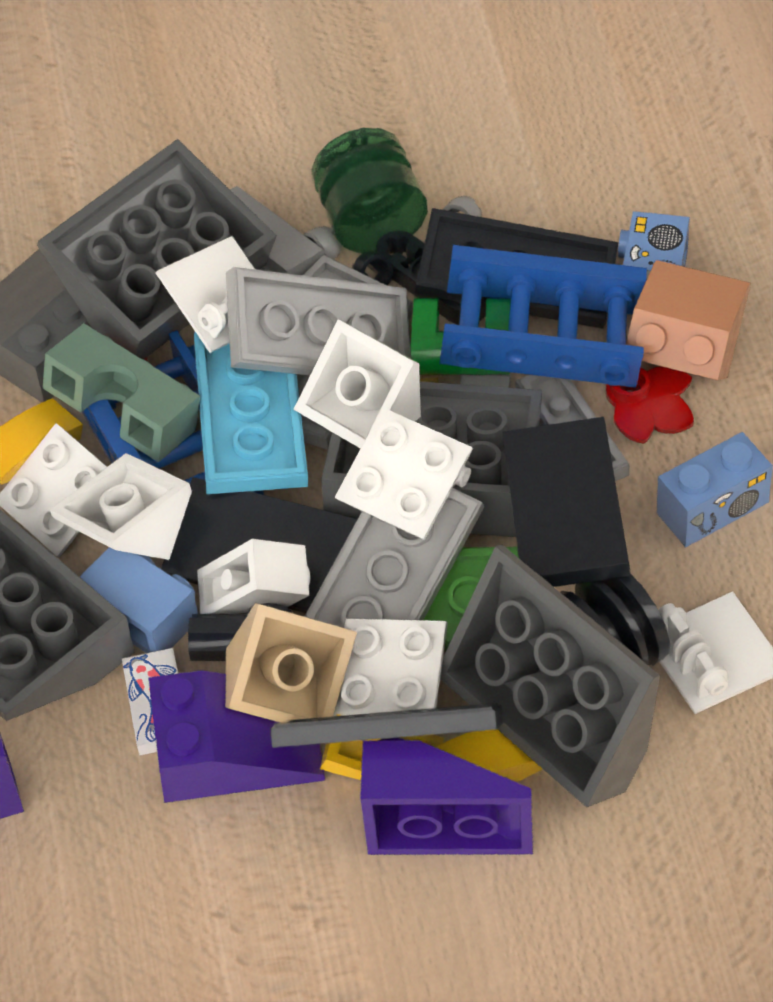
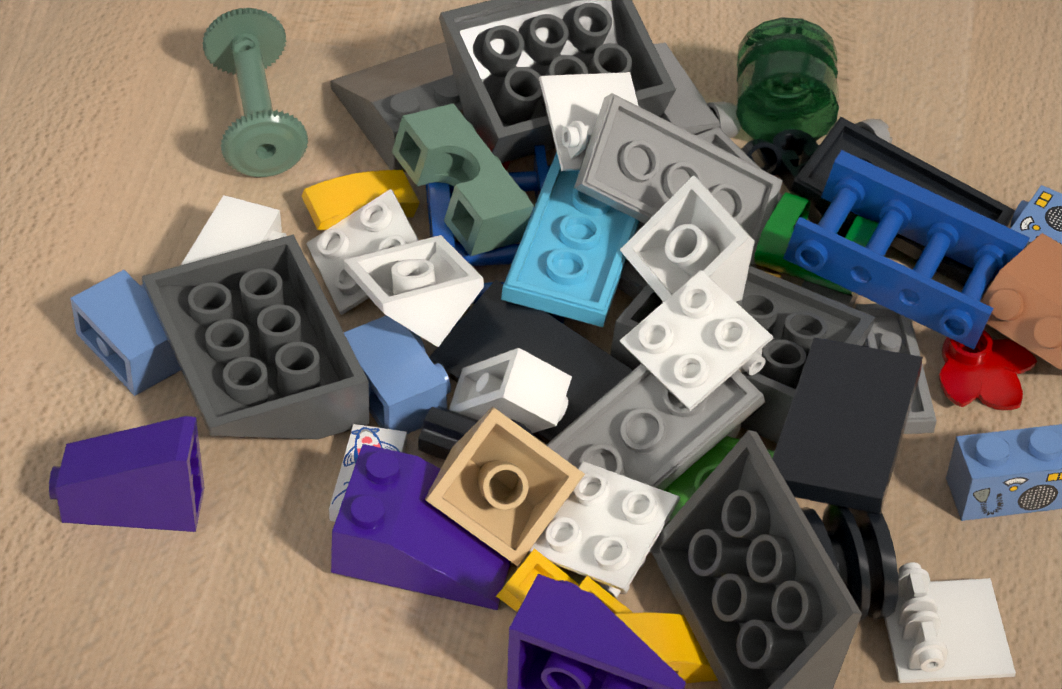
camera: 15 degrees right, 5 degrees down
(387, 725) = (572, 569): tile -> none

